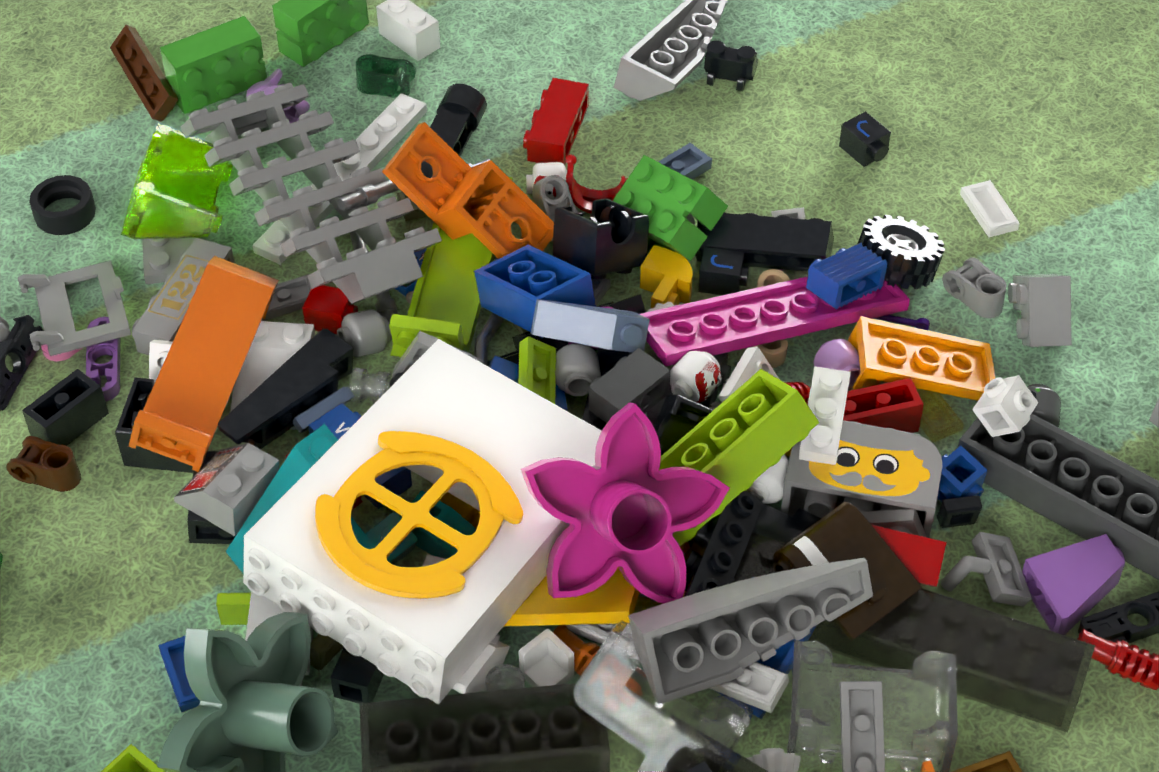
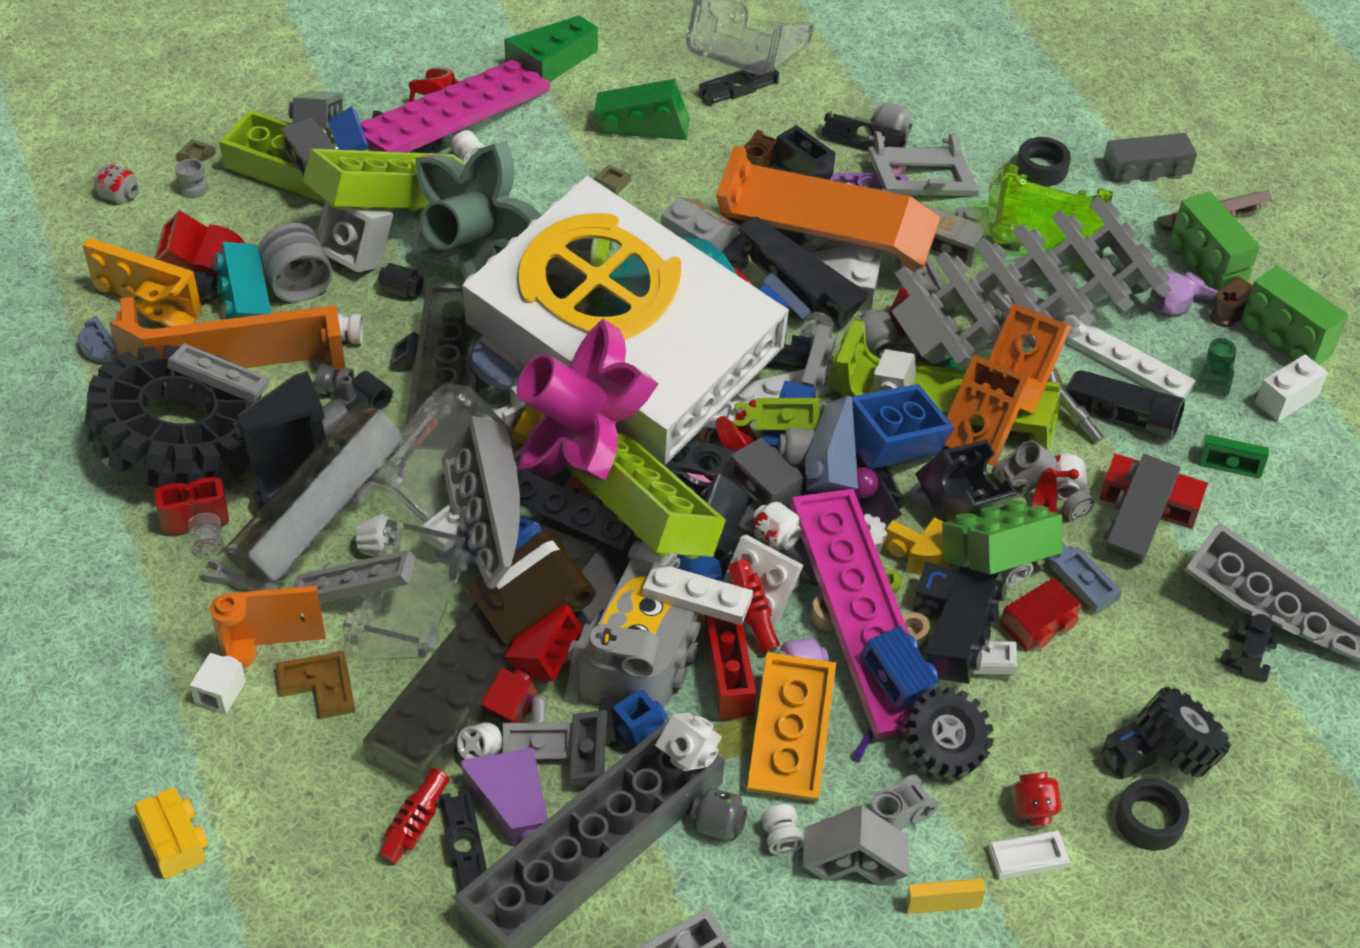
camera: 95 degrees right, 0 degrees up
(60, 118) = (1149, 157): none -> dark grey brick
(90, 625) = (613, 179): none -> olive tile
(290, 59) = (1231, 303): none -> reddish brown piece
(440, 303) = (894, 370): none -> white brick
(499, 70) = (1233, 456): none -> green brick
(502, 672) = (492, 367): none -> sand blue plate
(587, 173) = (1078, 505): none -> tile
(599, 117) = (1141, 507): none -> dark grey brick
(735, 191) = (1040, 615): none -> red brick
(851, 97) = (1183, 732): none -> black wheel
(923, 145) = (1144, 836): none -> black tyre
(925, 462) = (625, 652): none -> light grey piece
(939, 195) = (1036, 798): none -> red head
(965, 587) = (510, 696): none -> red brick
(1005, 515) = (587, 748): none -> dark grey slope
(1028, 610) = (471, 738): none -> white wheel
(1034, 366) = (783, 833): none -> white wheel
(1058, 251) = (945, 896): none -> yellow tile

